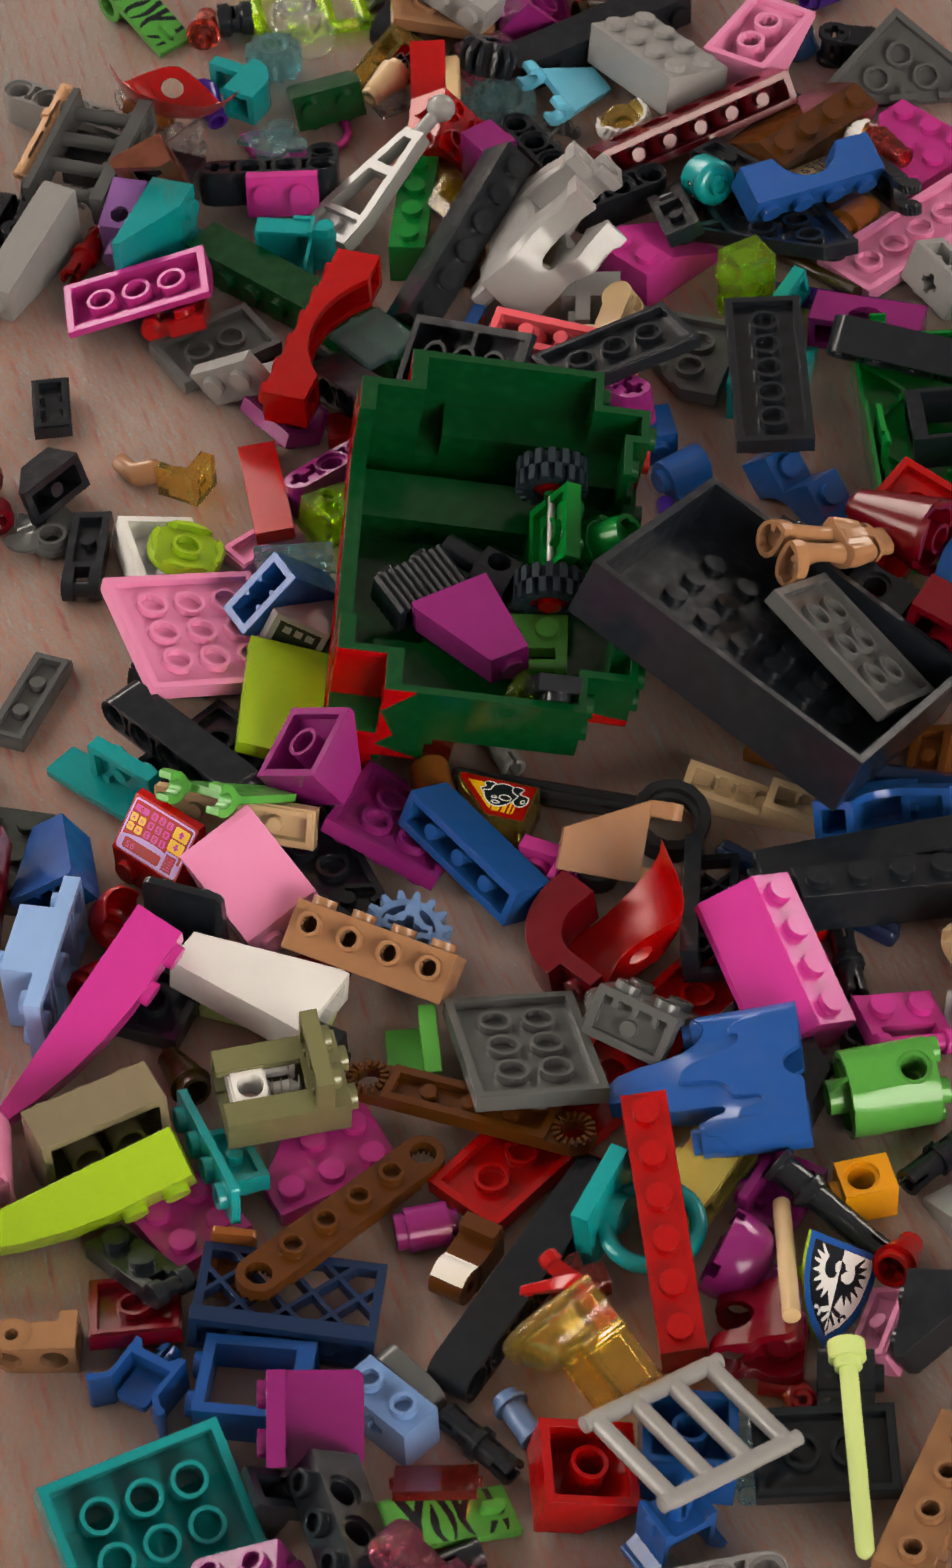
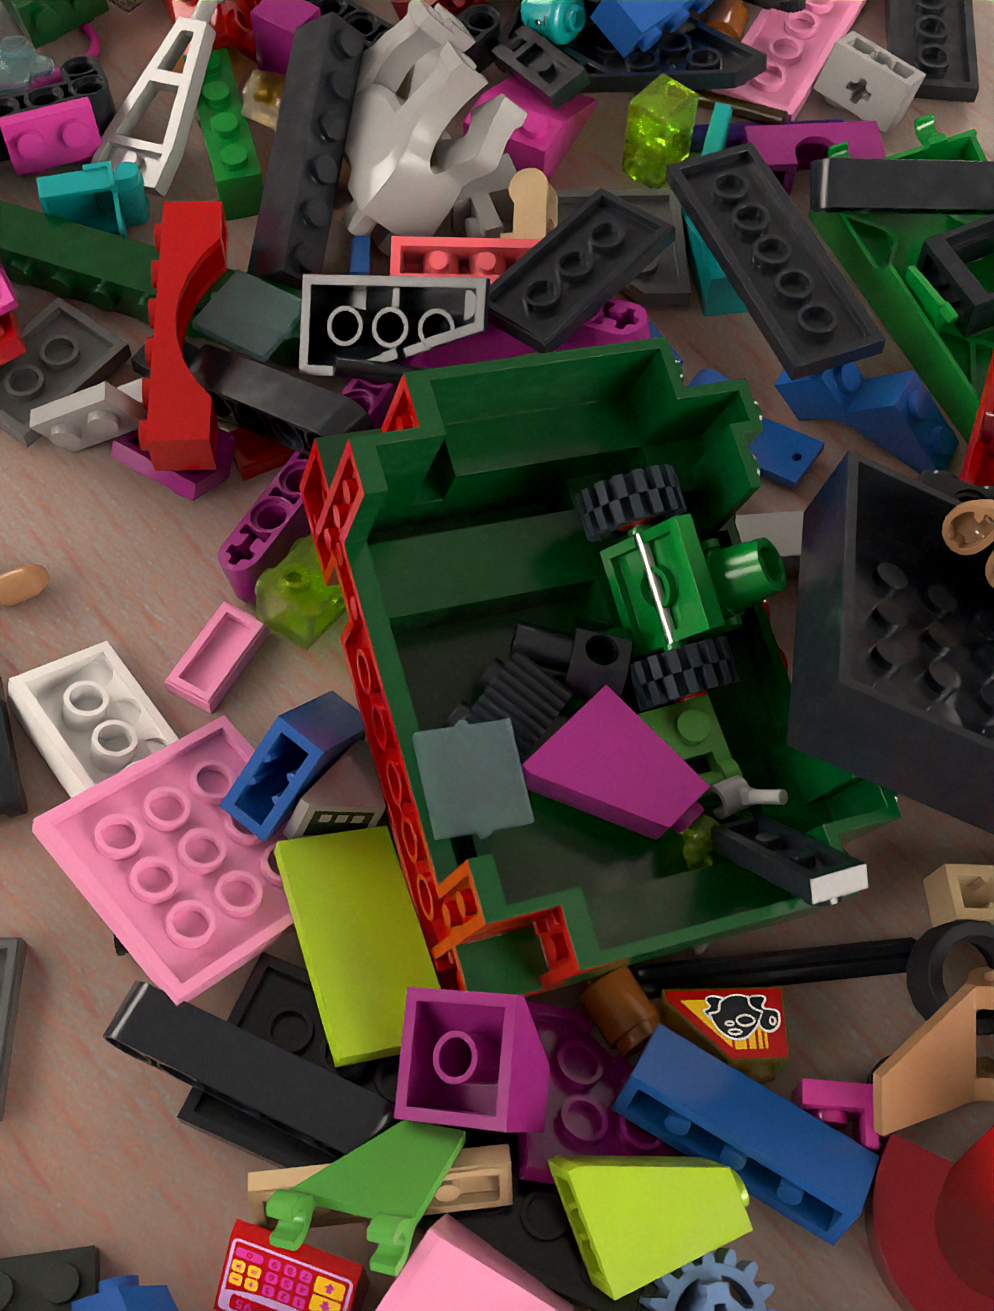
camera: 25 degrees left, 15 degrees up
(104, 775) = (159, 1160): teal bracket -> none
(185, 548) = (122, 707): lime tile -> none
(190, 483) = (80, 586): clear yellow panel -> none
(266, 493) = (196, 579): tile -> none
(315, 554) = (259, 695): clear light blue plate -> none
(378, 599) = (472, 779): none -> clear light blue piece
(388, 857) = (647, 1213): none -> lime slope
(557, 666) = (738, 796): none -> light grey hand

